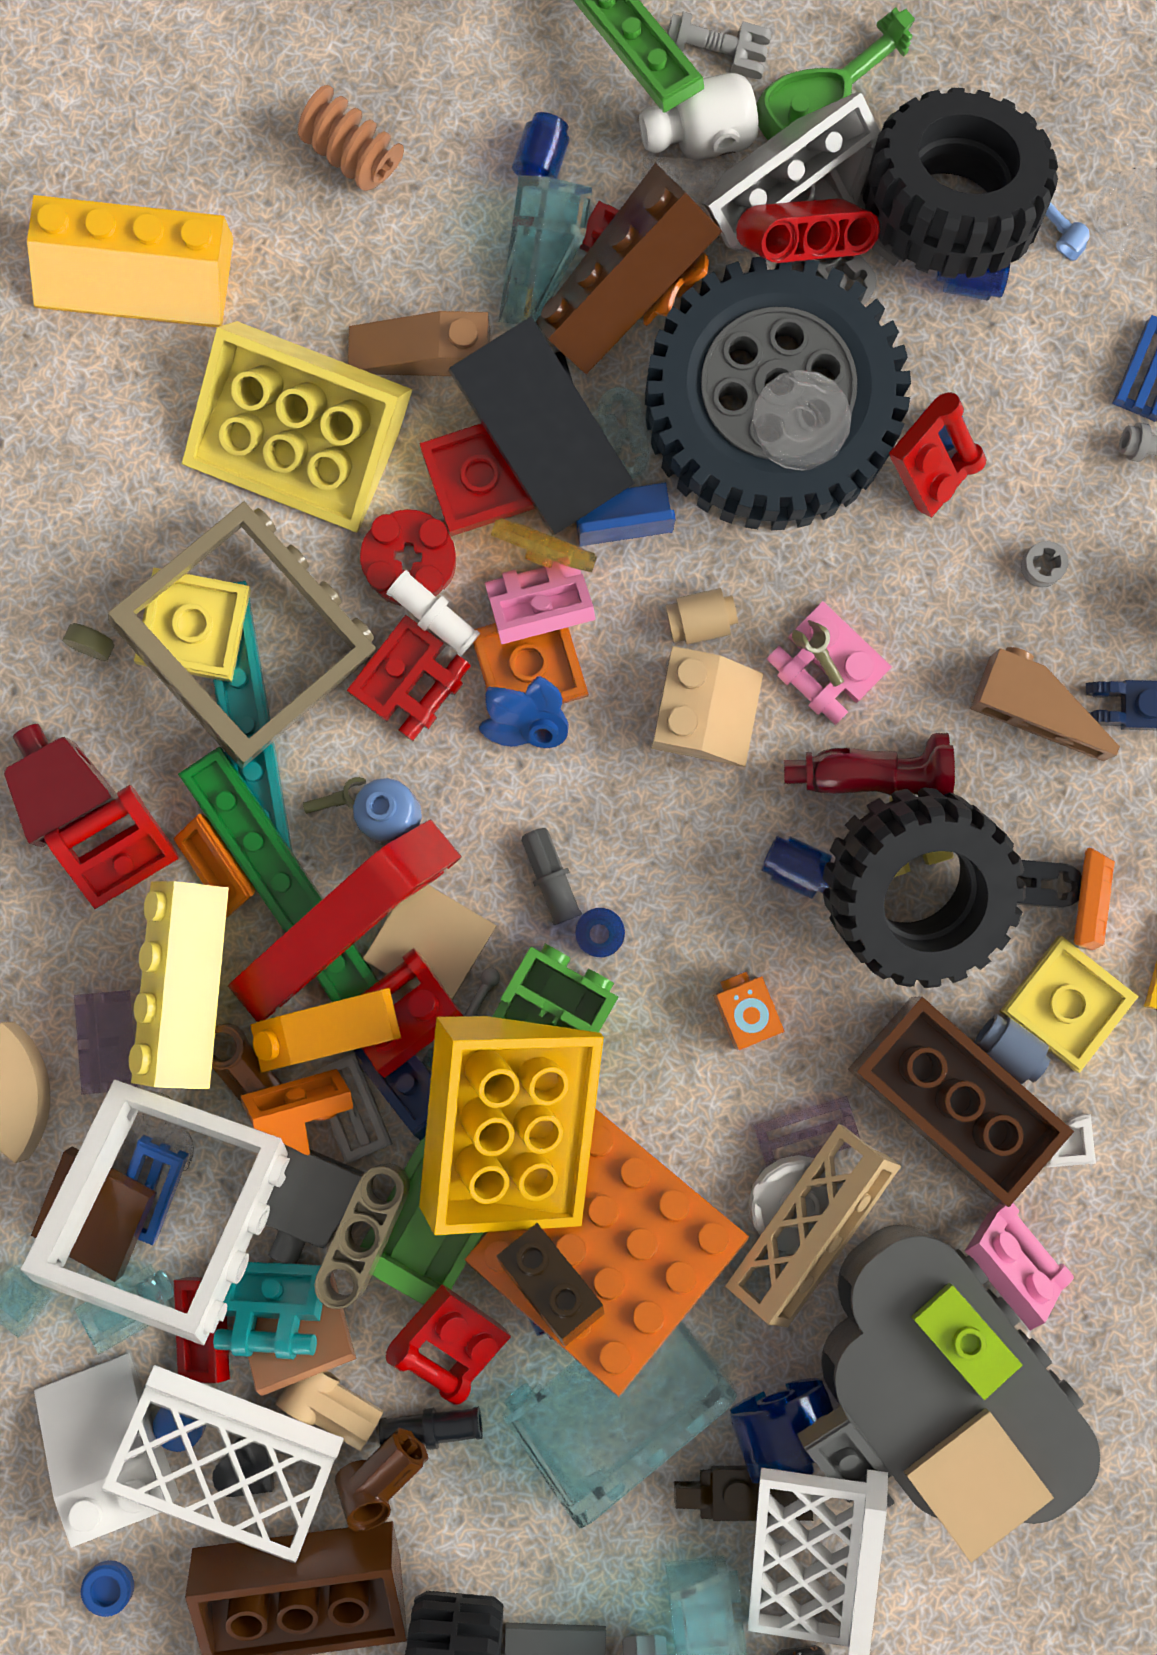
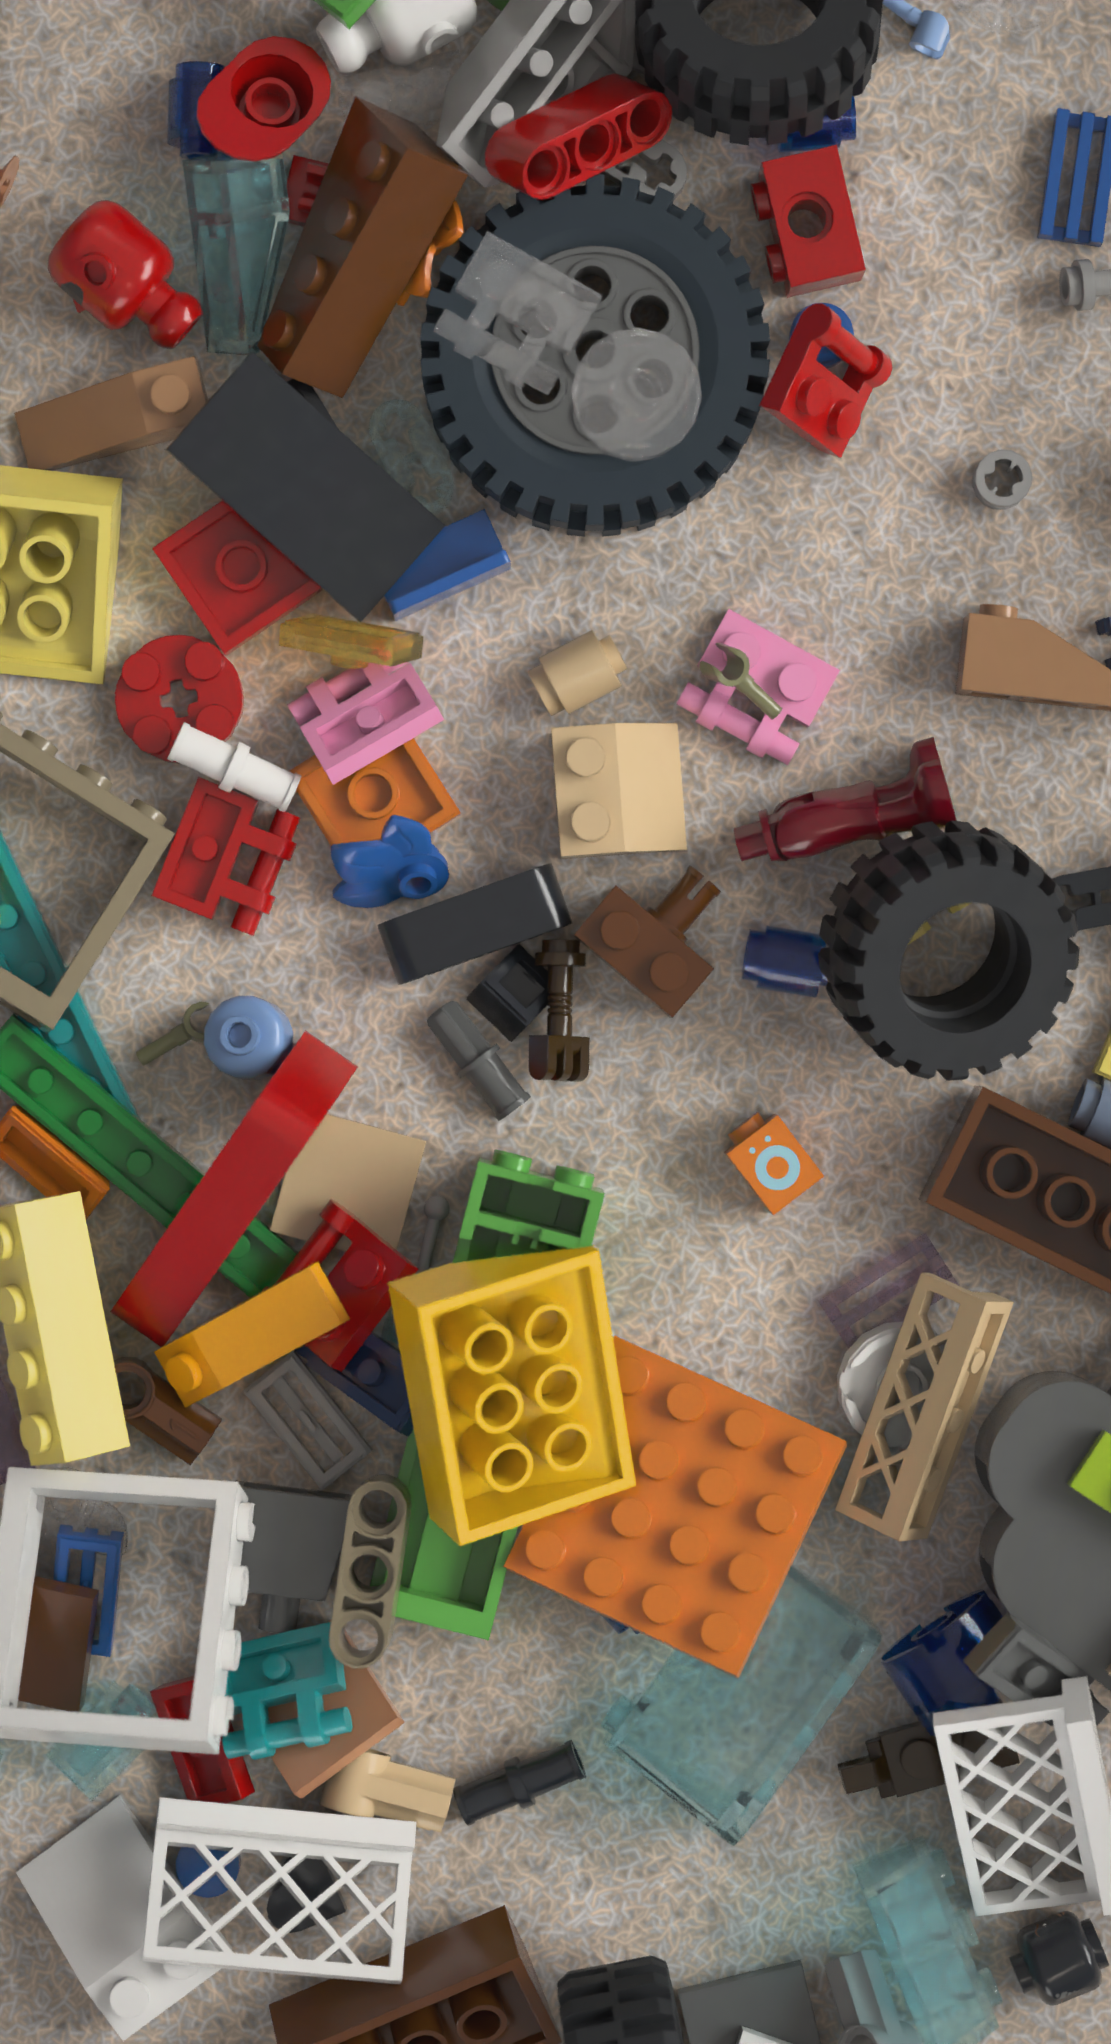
camera: 15 degrees left, 5 degrees up
(288, 1106) = (232, 1440): orange slope -> none
(370, 1483) = (463, 1870): reddish brown piece -> none
(453, 246) = (122, 273): none -> red piece
(458, 1331) = (518, 1654): red plate -> none
(551, 1284) = (617, 1566): dark brown brick -> none
(576, 774) = (474, 924): none -> black beam
(590, 149) = (264, 99): none -> red piece
(591, 835) = (512, 993): none -> black slope
(610, 921) = (559, 1137): clear blue brick -> none
(611, 886) = (559, 1053): none -> dark brown hinge
(700, 825) = (650, 943): none -> reddish brown brick
(741, 327) = (527, 295): none -> clear plate
(966, 320) = (815, 184): none -> red brick

